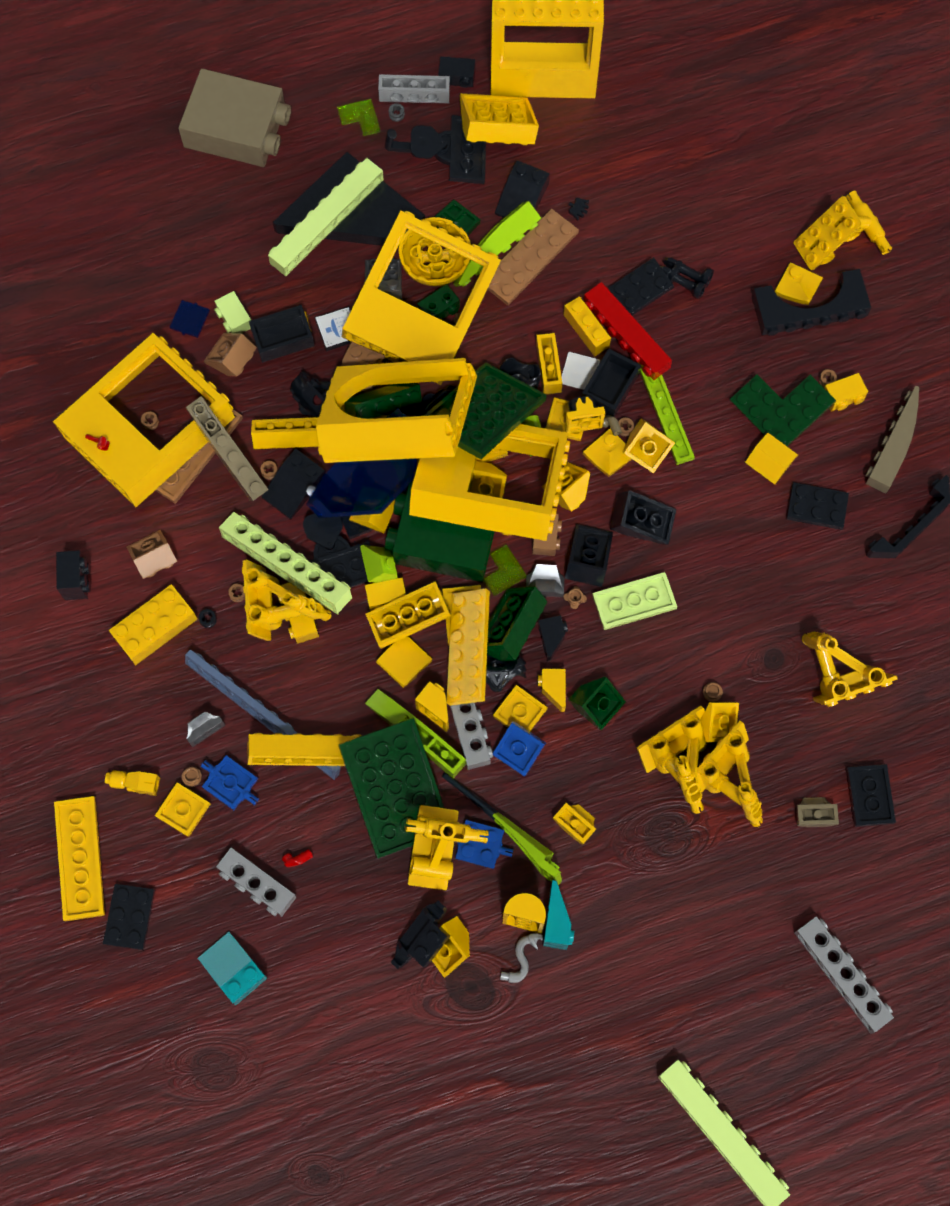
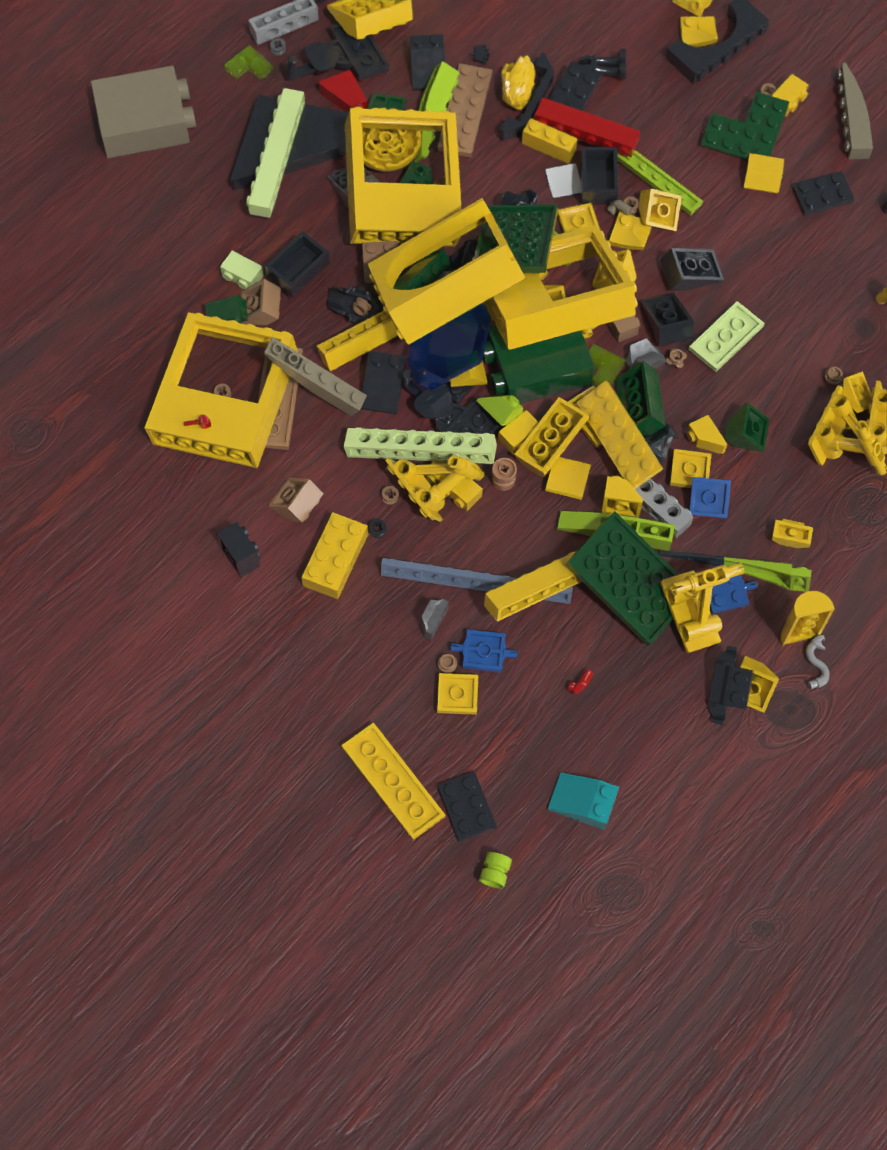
camera: 30 degrees left, 5 degrees down
(117, 987) = (495, 870): none -> lime wheel
(134, 781) = (402, 692): yellow piece -> none
(189, 318) = (202, 292): clear blue piece -> none
(194, 347) = (228, 309): none -> dark green brick
(234, 860) = (568, 713): light grey brick -> none
(268, 464) = (357, 378): medium nougat bush -> none
(315, 403) = (361, 307): none -> medium nougat plate
(331, 326) = (337, 241): white tile -> none
(346, 627) = (504, 474): none -> nougat wheel
(428, 187) = (343, 91): none -> red slope
(549, 363) = (533, 177): yellow brick -> none
(552, 634) = (677, 395): black slope -> none
(558, 925) = (841, 621): teal slope -> none
(560, 297) = (514, 128): none -> black slope
(583, 415) = (593, 203): yellow piece -> none
(591, 255) = (518, 82): none -> yellow head

